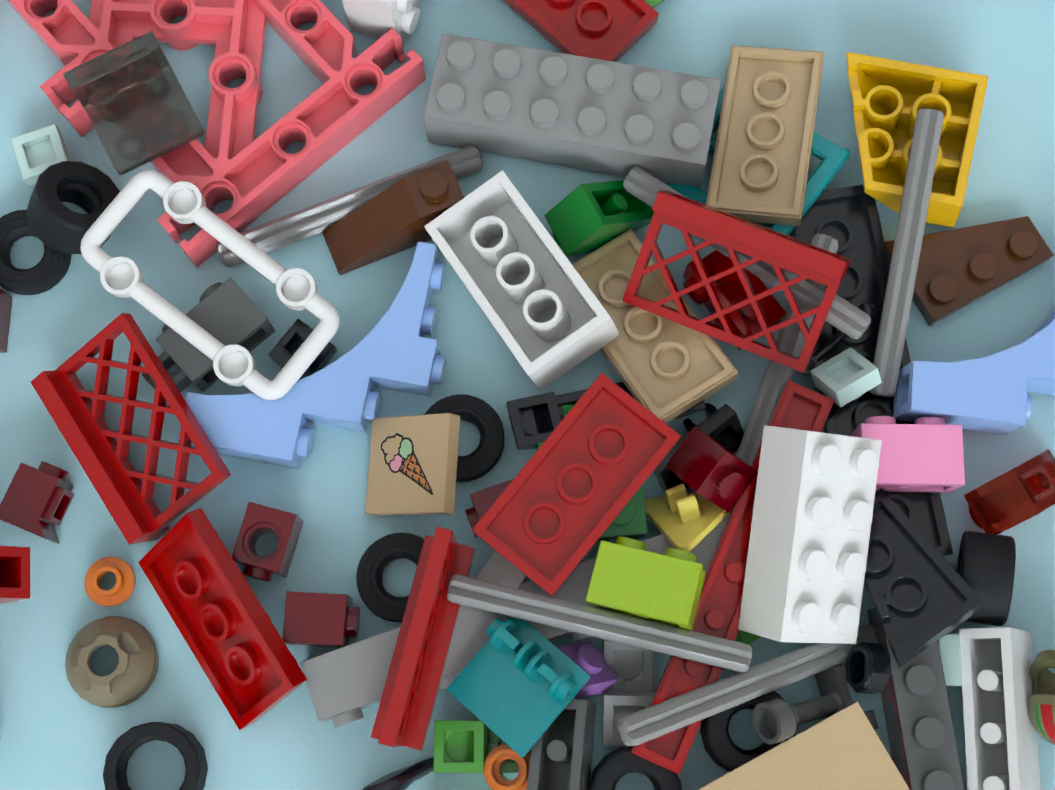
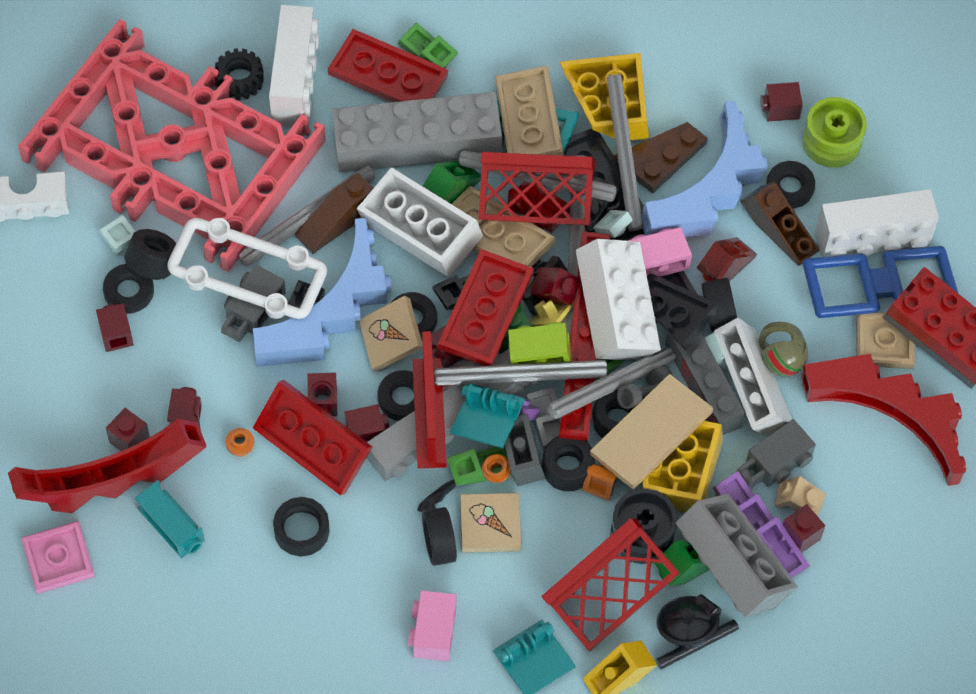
camera: 20 degrees left, 15 degrees down
(105, 458) = (219, 378): red fence -> none
(135, 103) = (173, 186): clear smoke bracket -> none
(135, 668) = (254, 495): dark tan piece -> none
(868, 668) = (671, 361): black tile -> none

